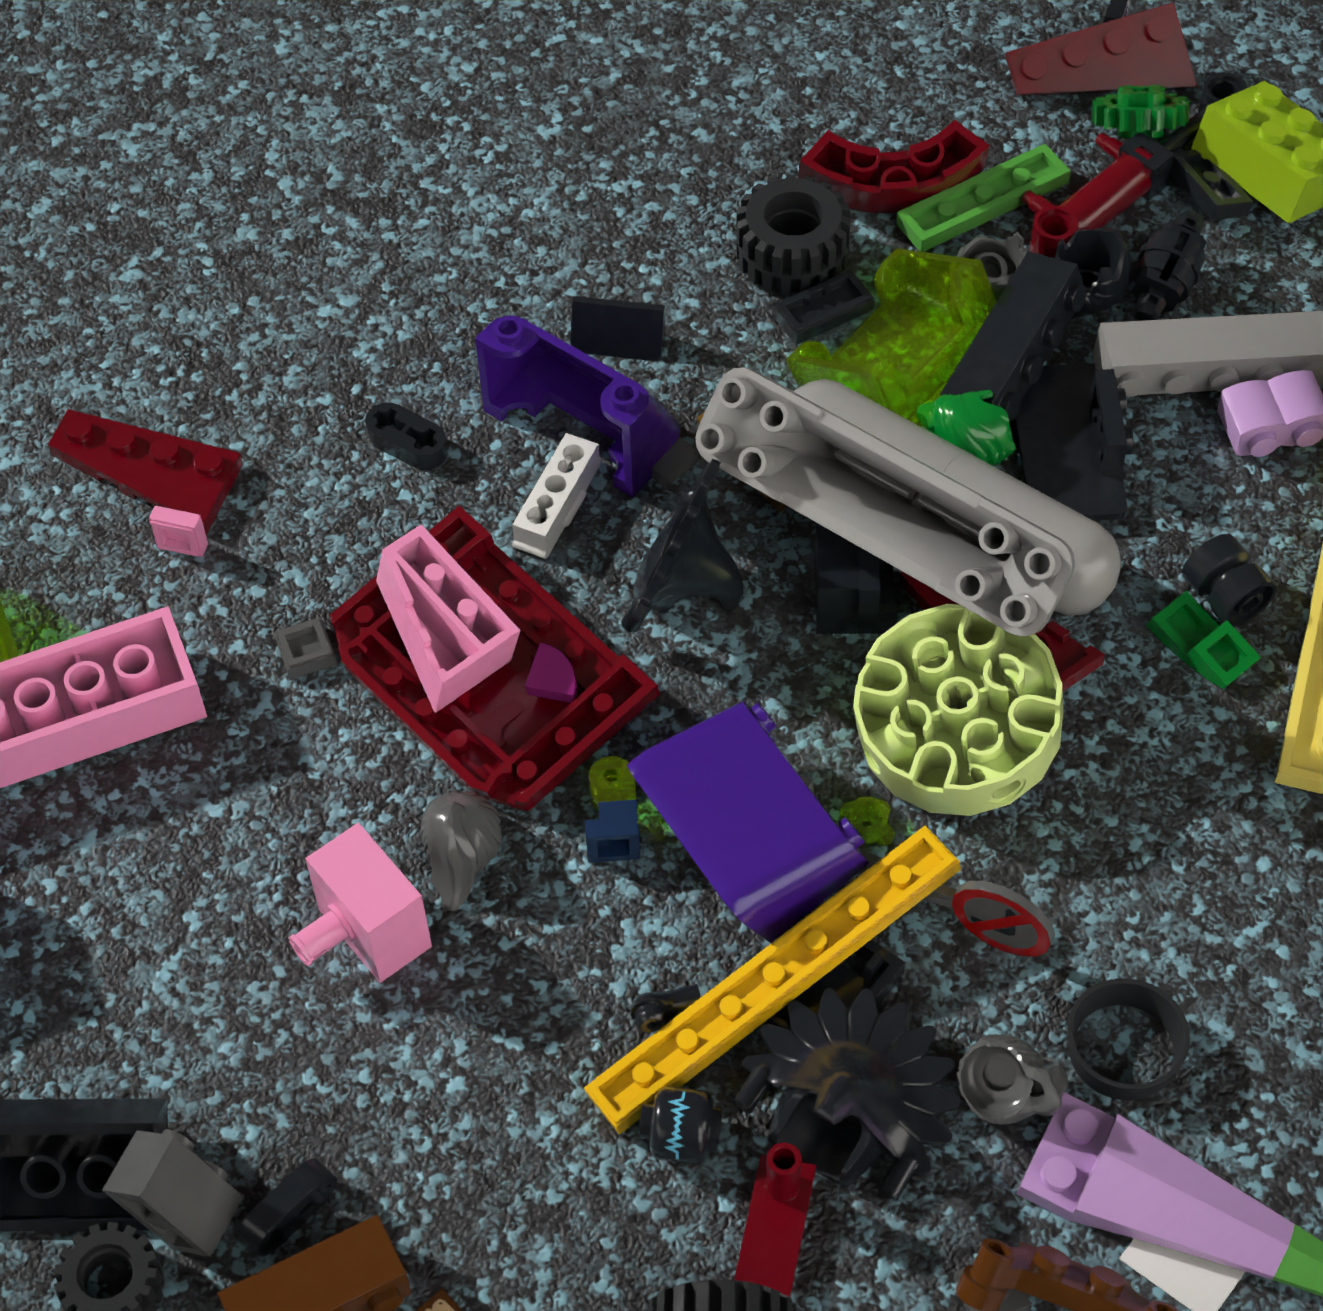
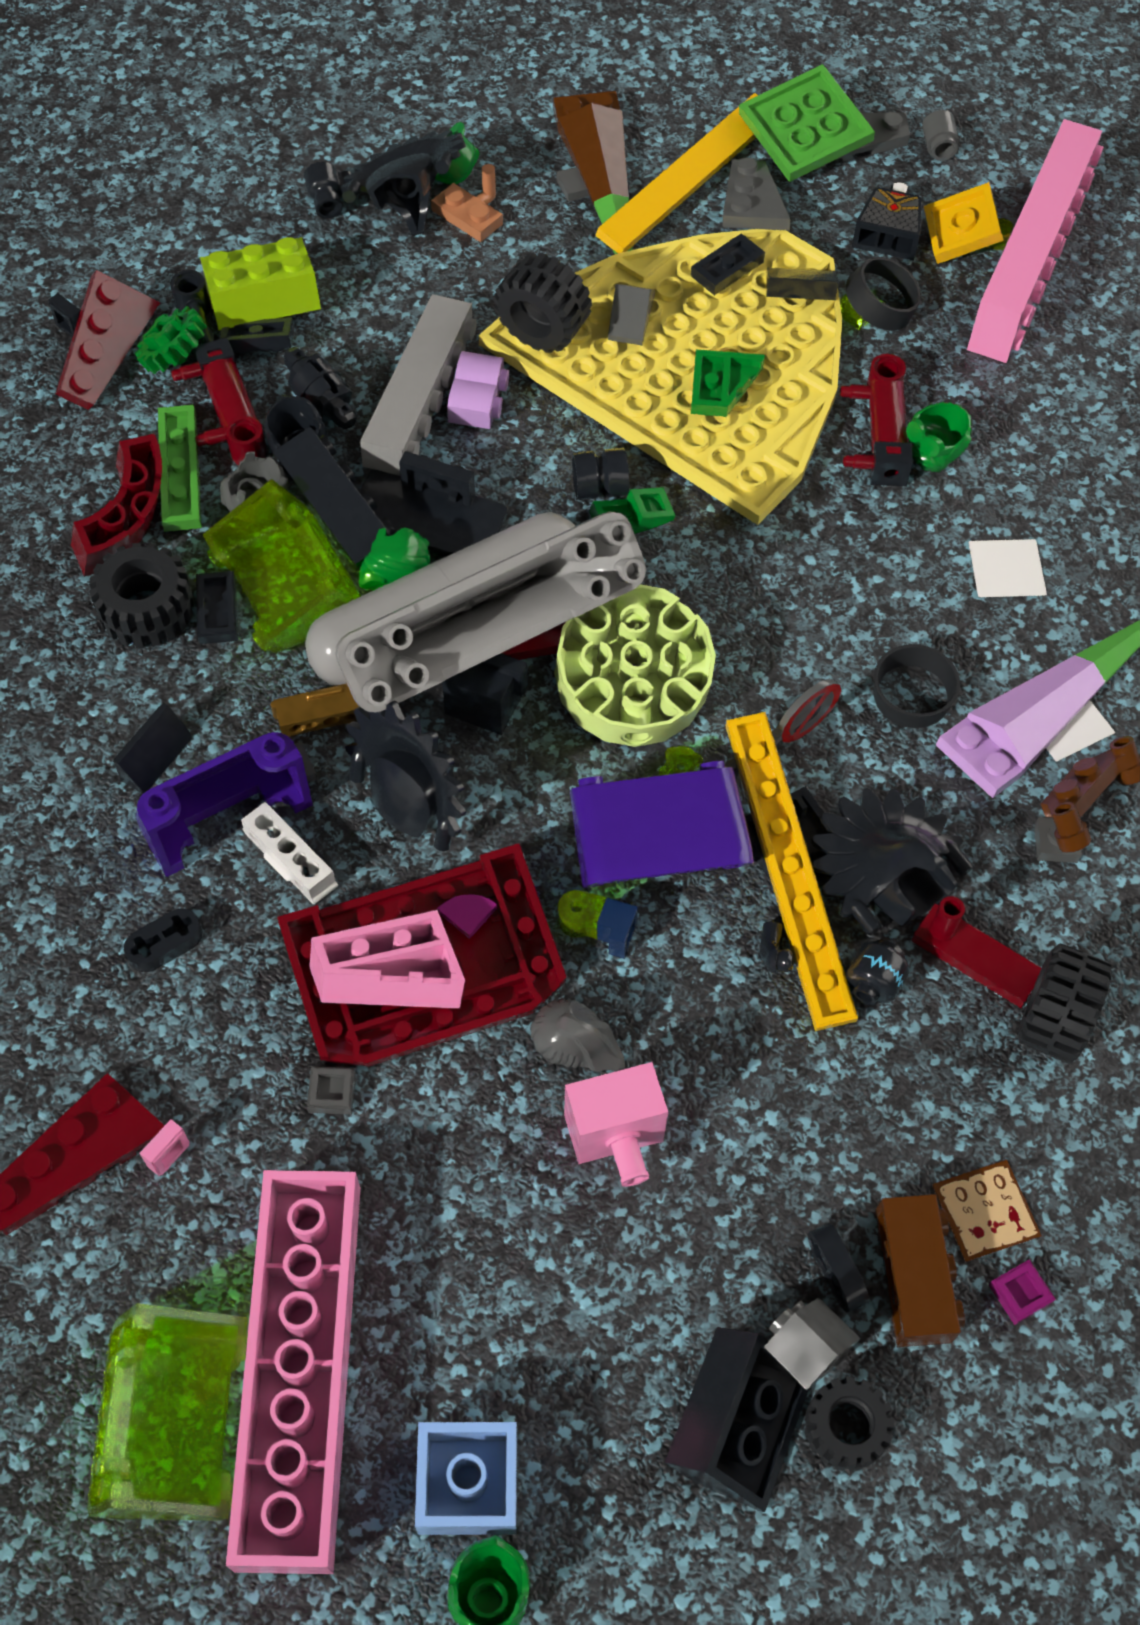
camera: 70 degrees left, 5 degrees up
(1010, 1080) = (928, 759): dark grey hair -> none

